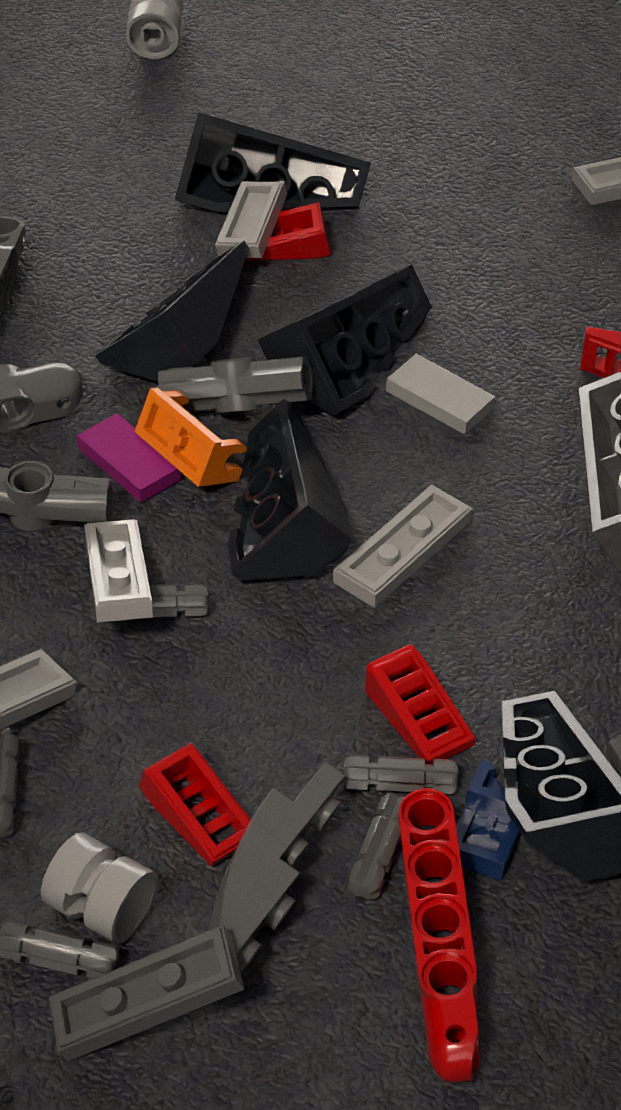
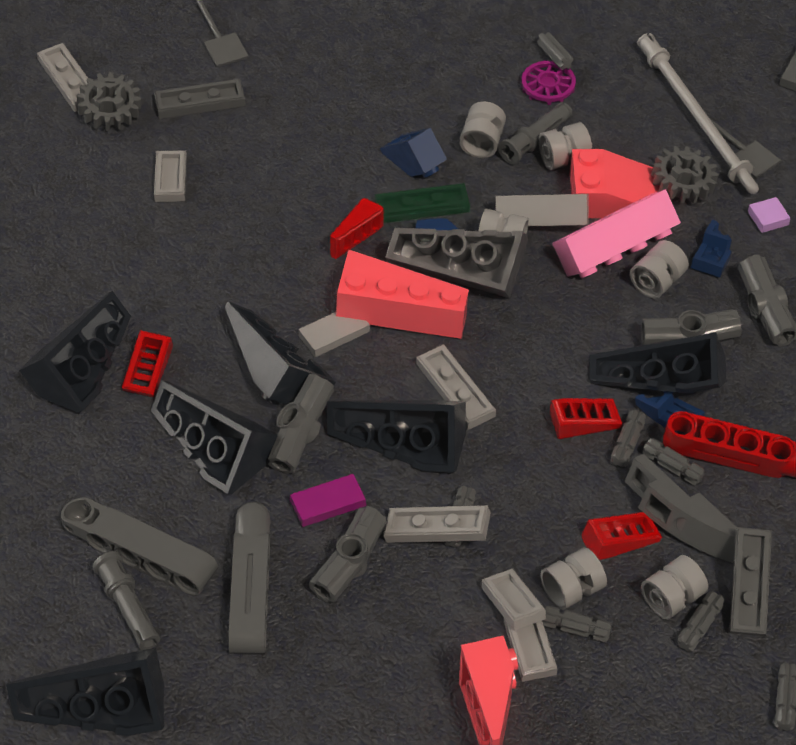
camera: 70 degrees left, 5 degrees up
(71, 751) = (575, 577): none -> light grey wheel
(186, 440) = (339, 461): orange hinge -> none
(252, 217) = (133, 371): light grey tile -> none
(521, 429) = (400, 298): none -> coral wedge

